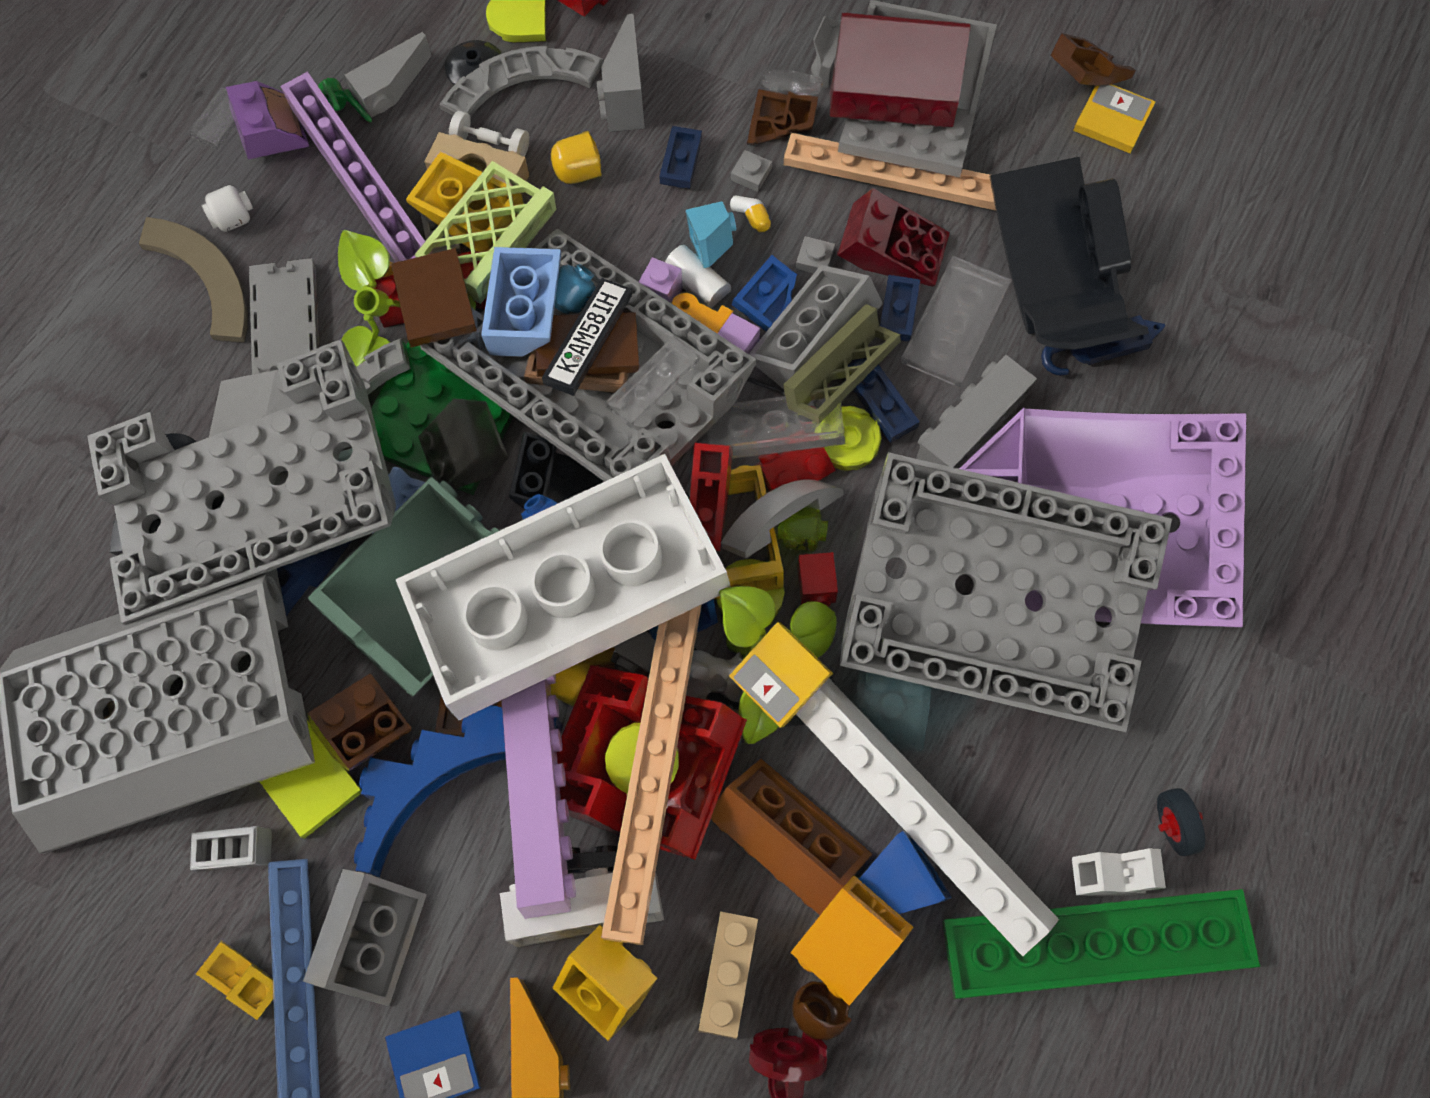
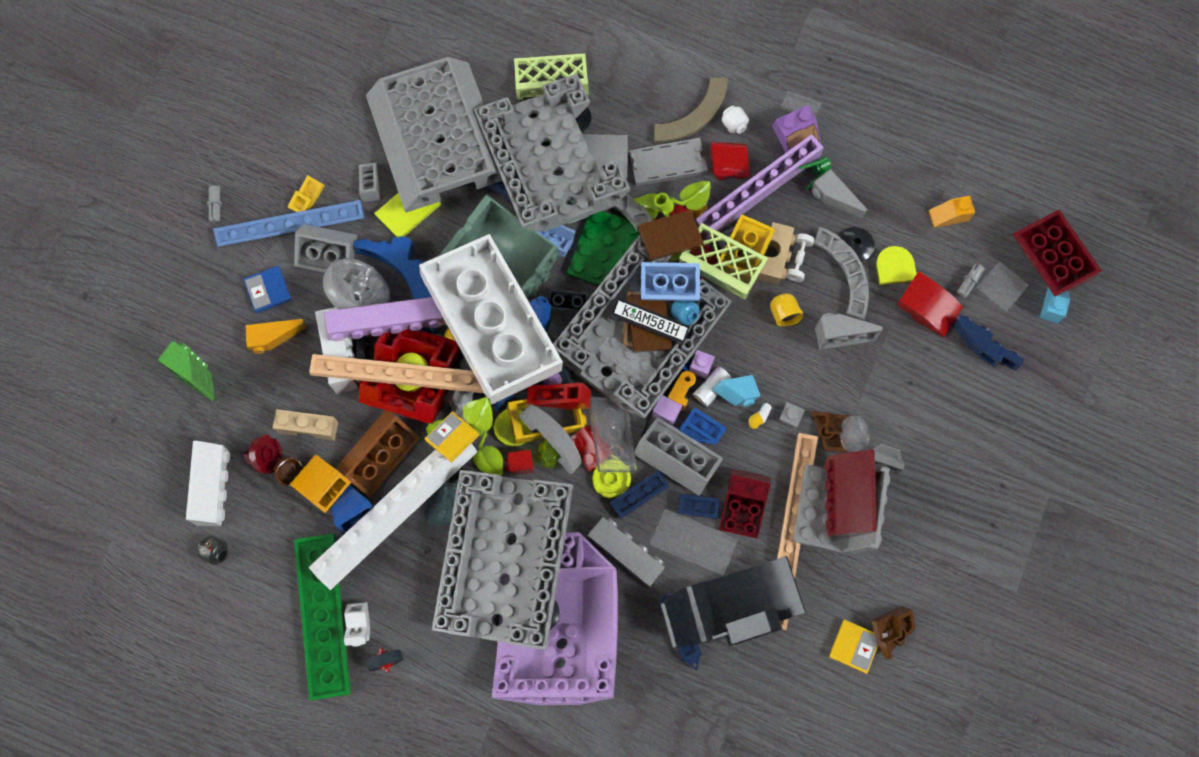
camera: 85 degrees right, 5 degrees up
(99, 519) = (534, 87): none -> yellowish green fence
(299, 227) = (729, 160): none -> red slope
(358, 723) = (428, 231): reddish brown slope -> none
(463, 444) = (587, 264): clear smoke slope -> none
(470, 848) = (361, 275): none -> flat silver wheel
(604, 983) = (297, 363): yellow brick -> none
(680, 157) = (795, 371): dark blue plate -> none
(814, 254) = (733, 456): light grey plate -> none
(832, 363) = (666, 474): olive fence -> none

